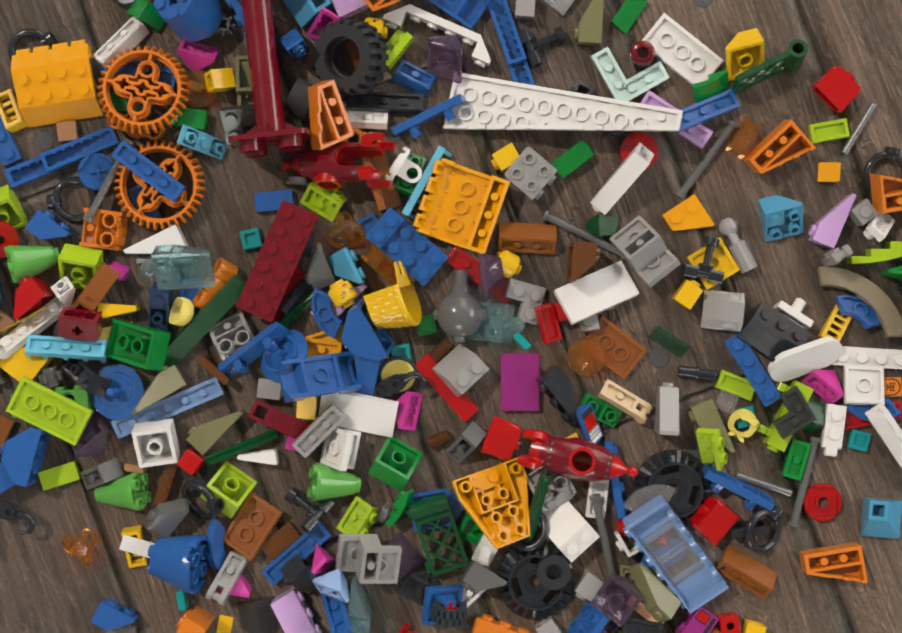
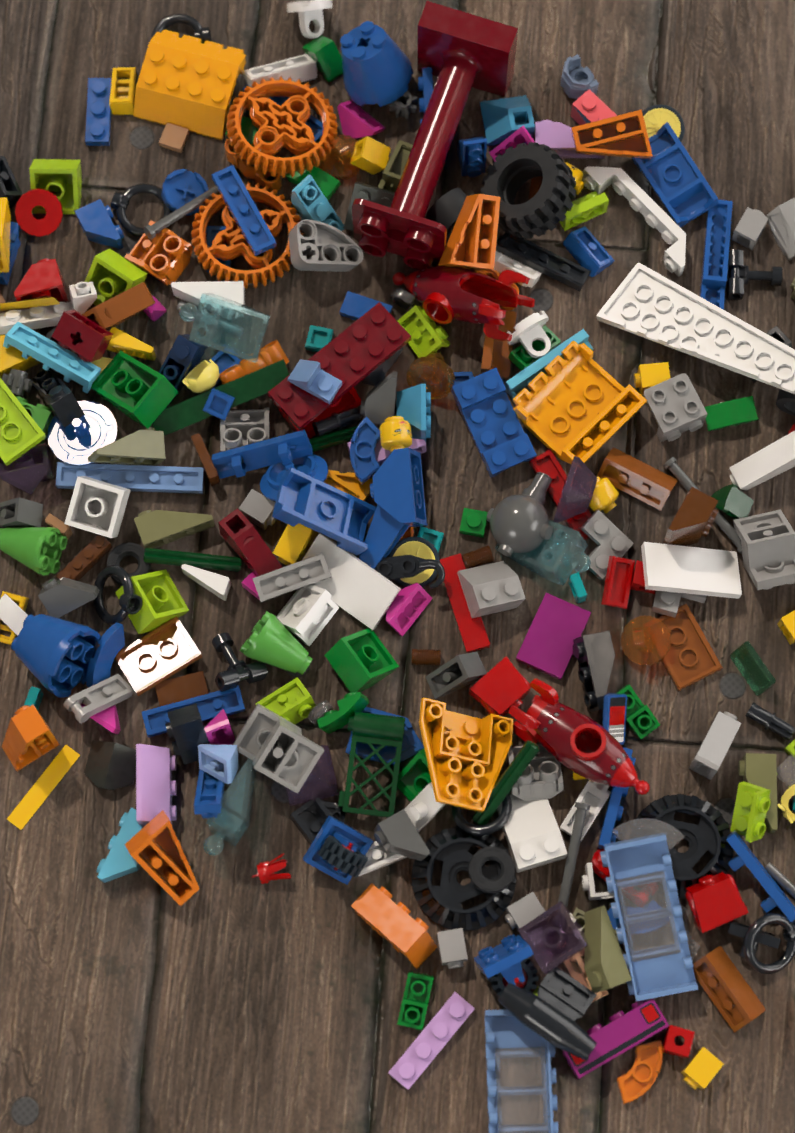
camera: 25 degrees right, 15 degrees down
(30, 260) = (63, 246): bright green cone -> none
(60, 157) = (149, 160): blue slope -> none
(191, 461) = (127, 545): red piece -> none
(204, 327) = (218, 404): none -> blue tile
(215, 167) = (322, 240): none -> light grey beam
(265, 284) = (315, 381): none -> medium blue slope
(381, 263) = (456, 432): clear orange slope -> none
(396, 304) = (450, 471): yellow piece -> none
(413, 123) = (566, 294): blue hinge -> none
(445, 57) = (634, 240): clear purple slope -> none
(625, 401) = (669, 713): tan plate -> none

